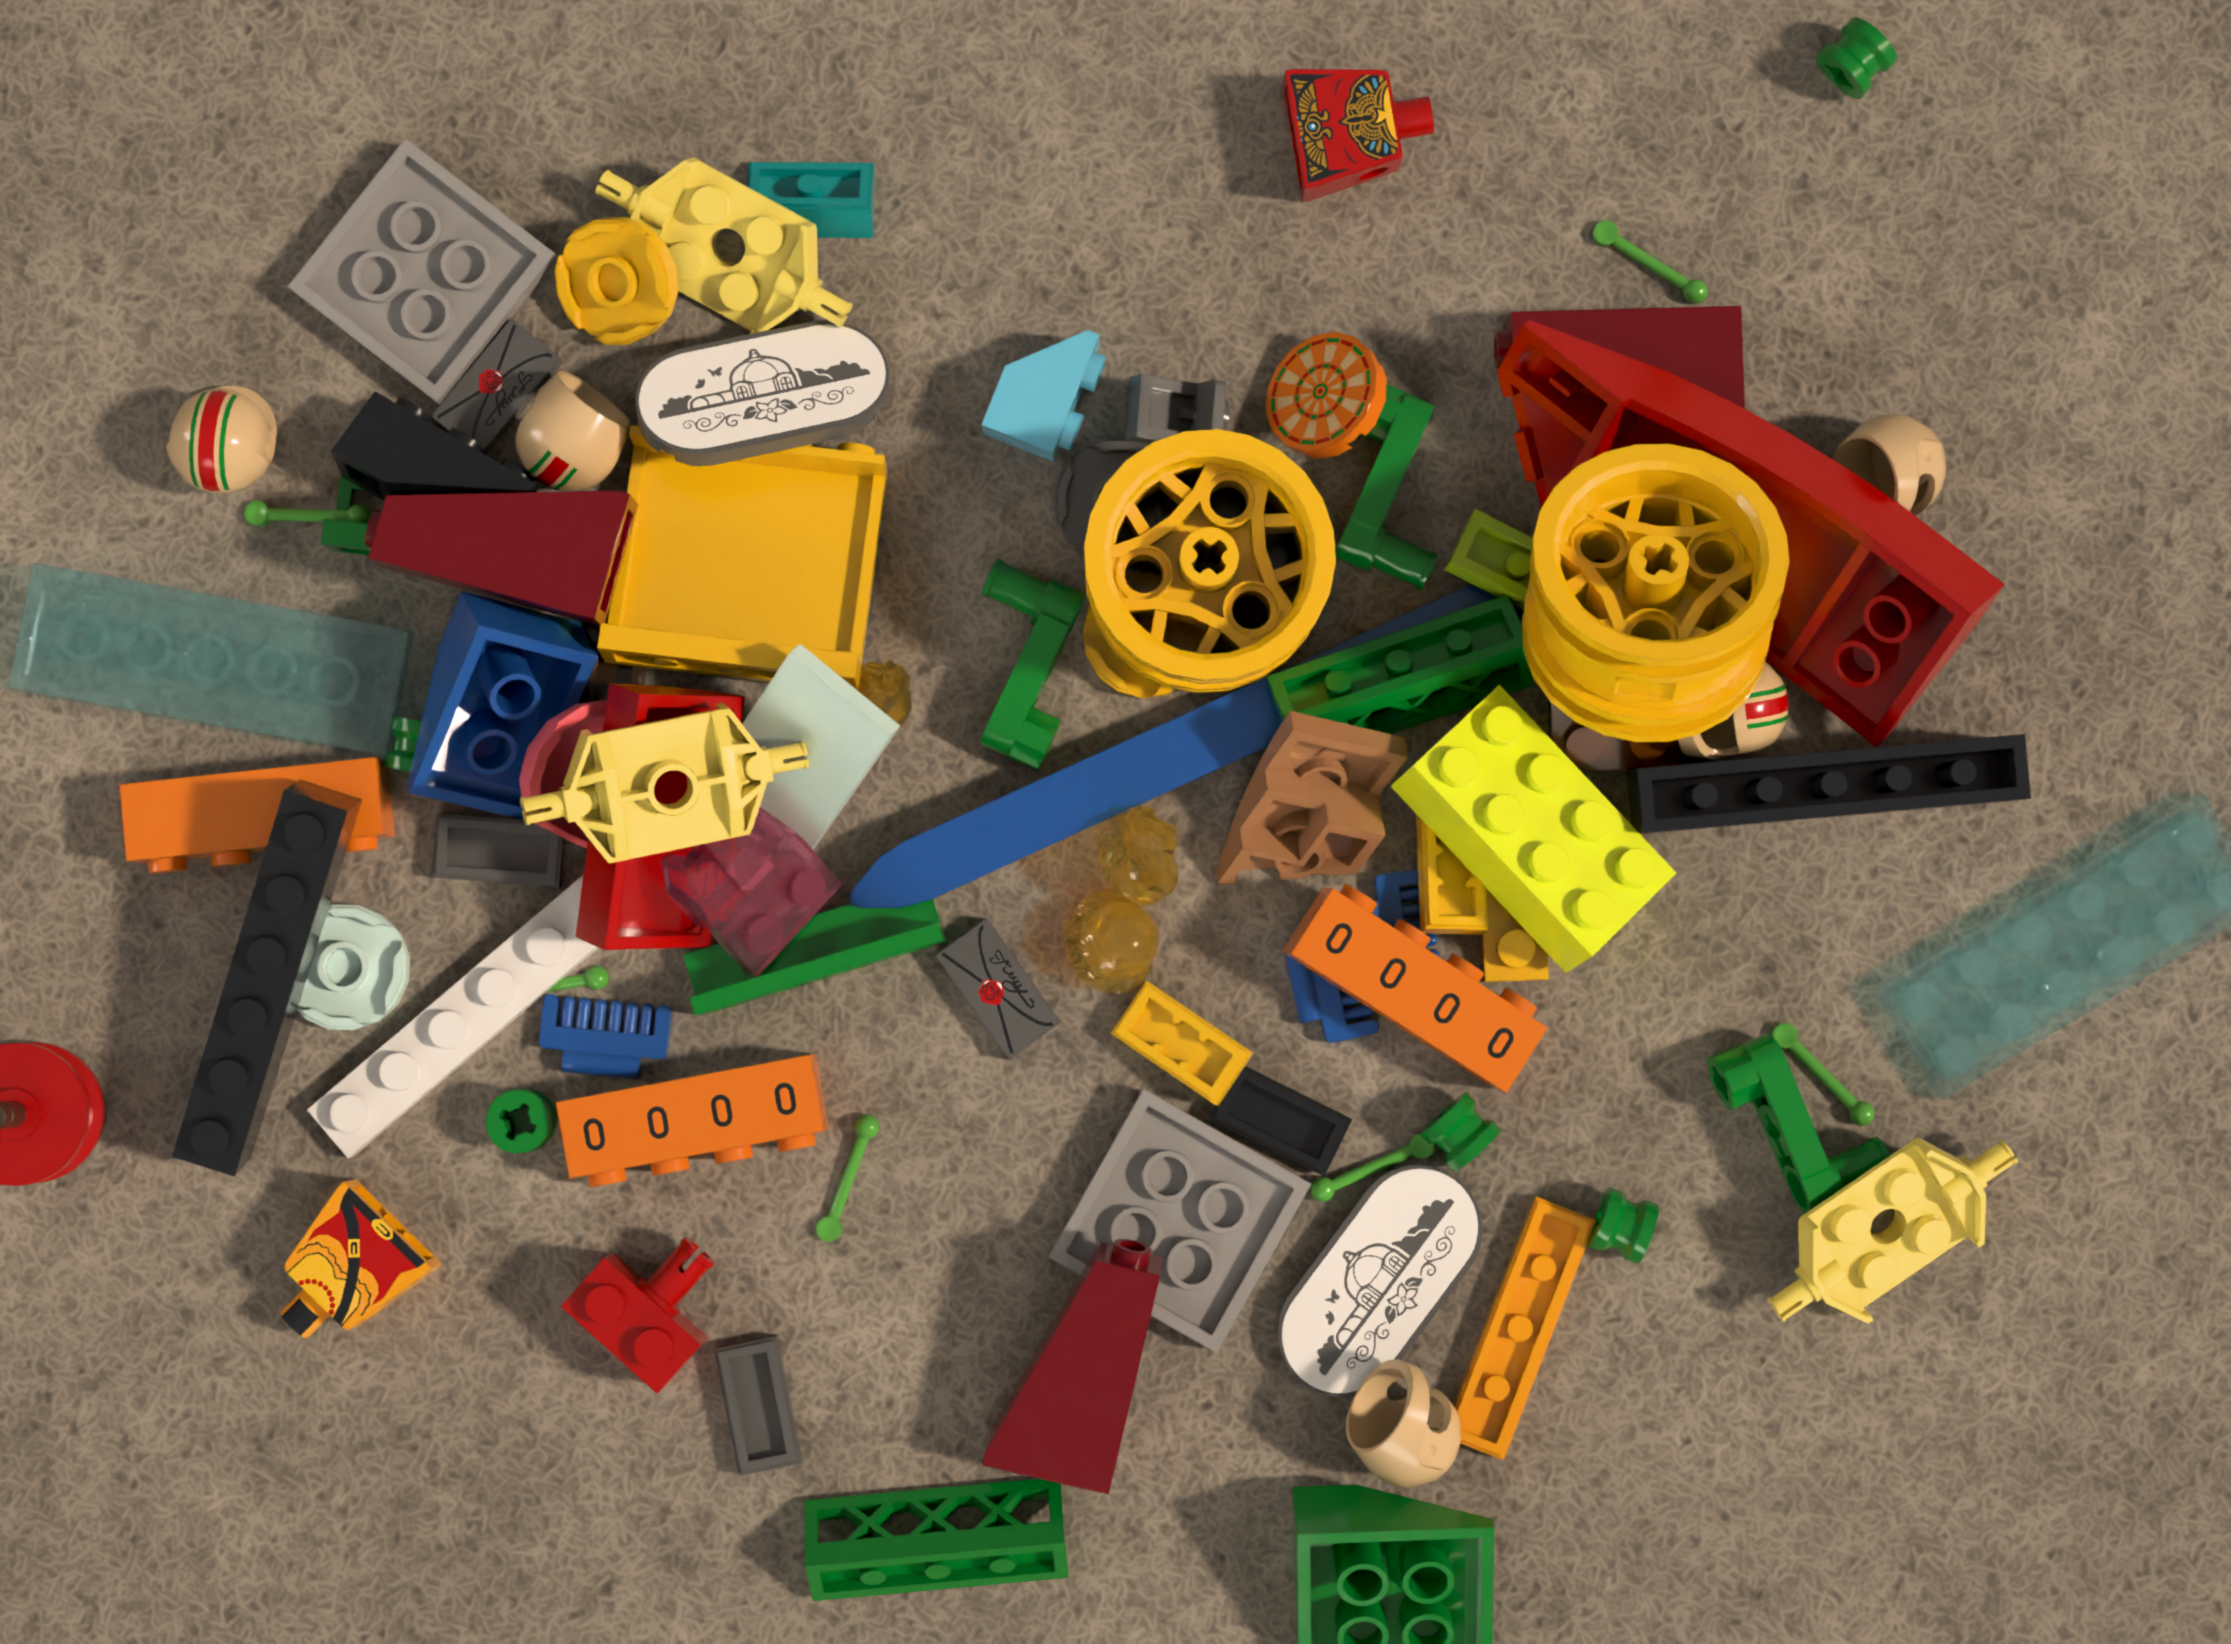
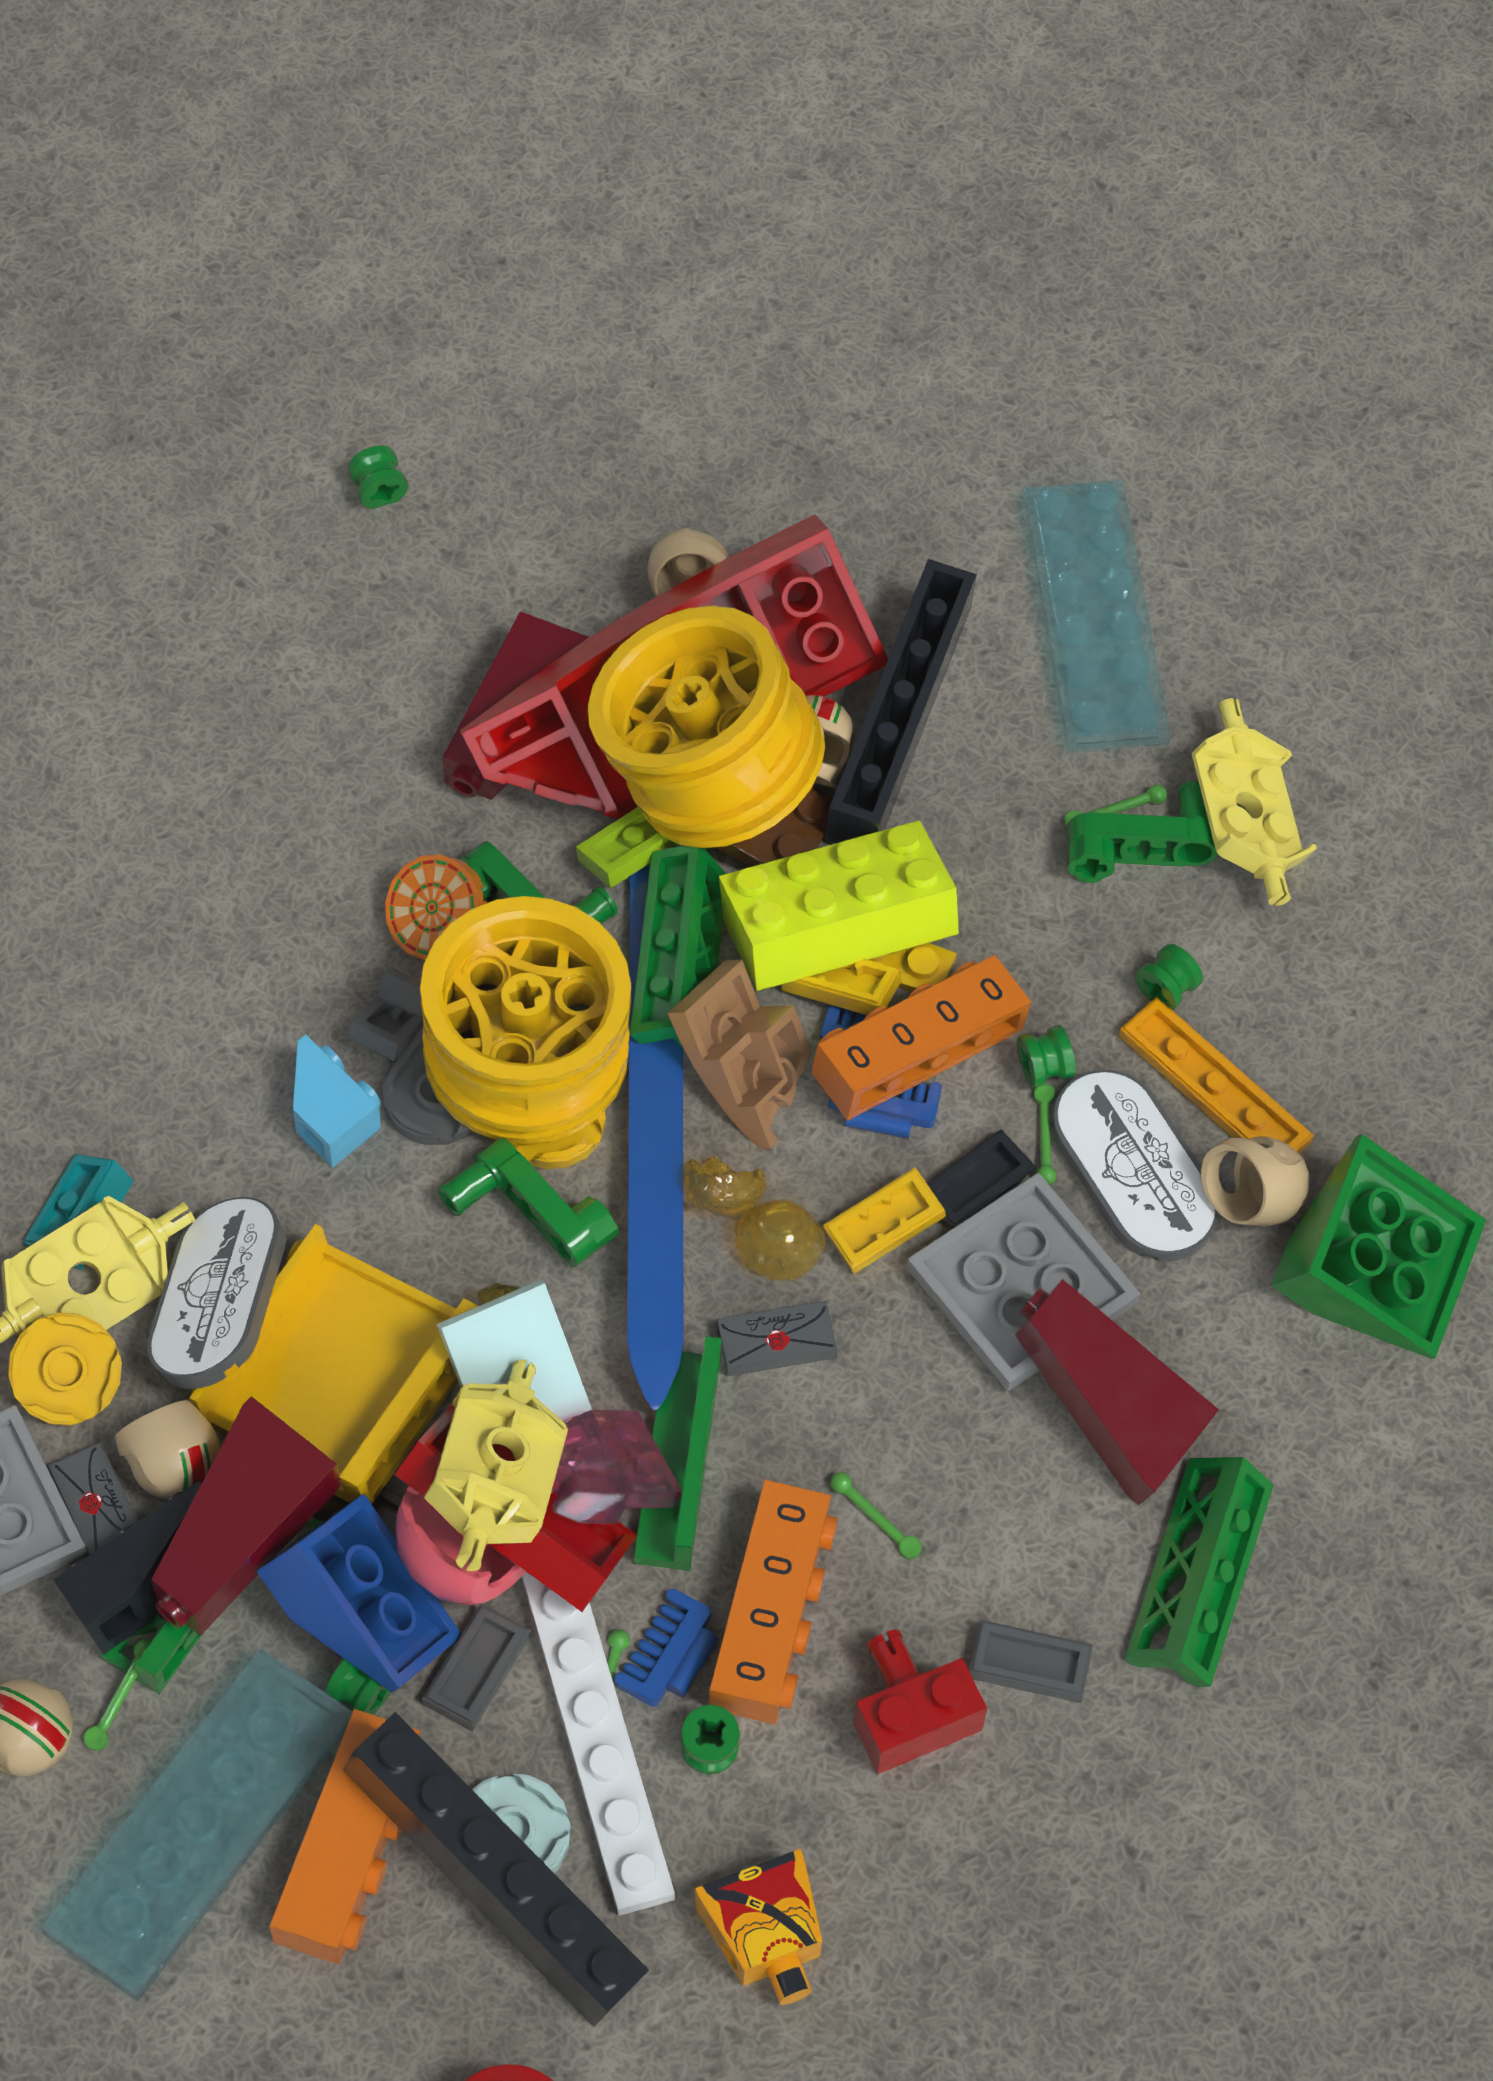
camera: 70 degrees left, 25 degrees down
(1348, 127) = (239, 815): torso -> none
(1606, 234) = (415, 689): bright green hinge -> none

